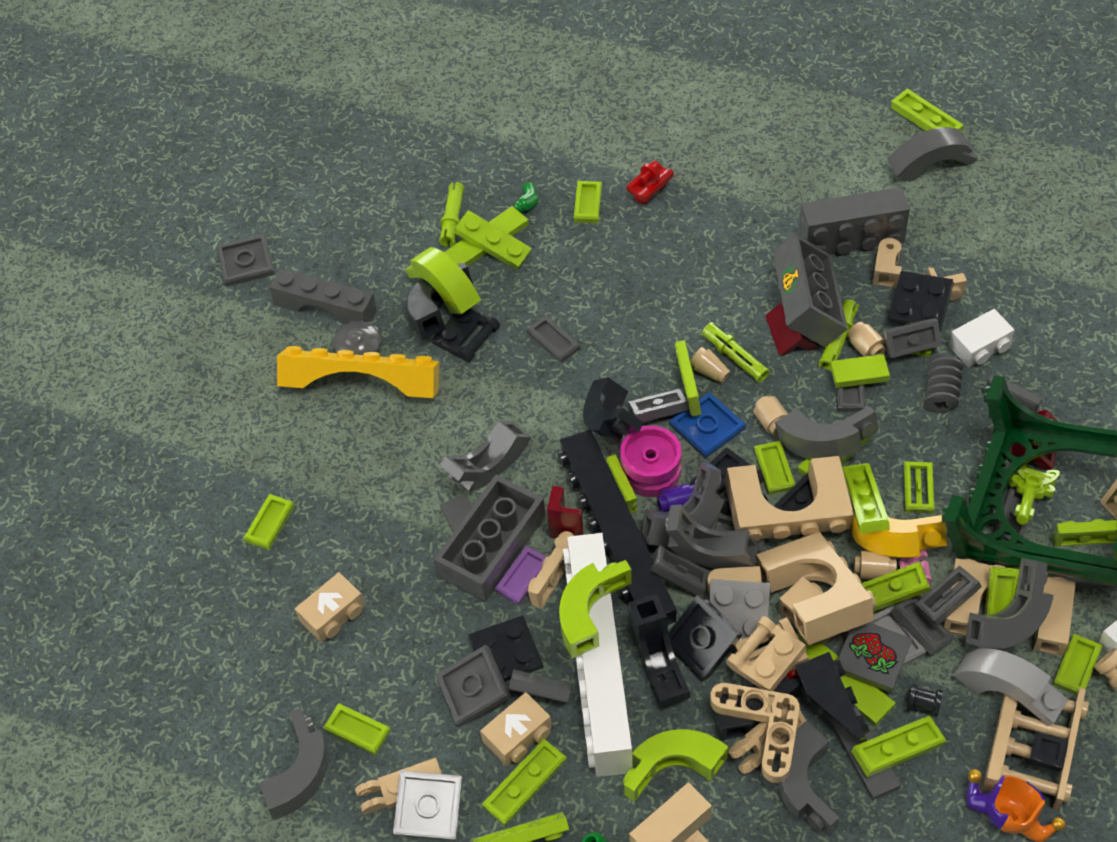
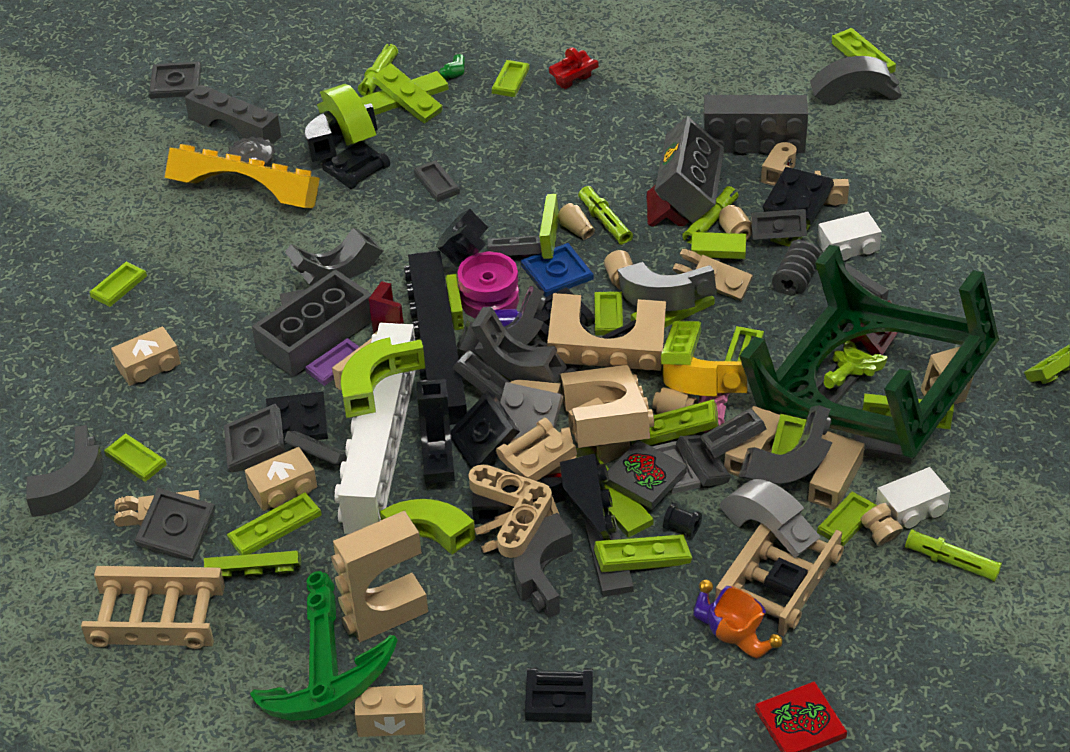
camera: 10 degrees right, 10 degrees down
(887, 409) = (728, 279): none -> tan hinge

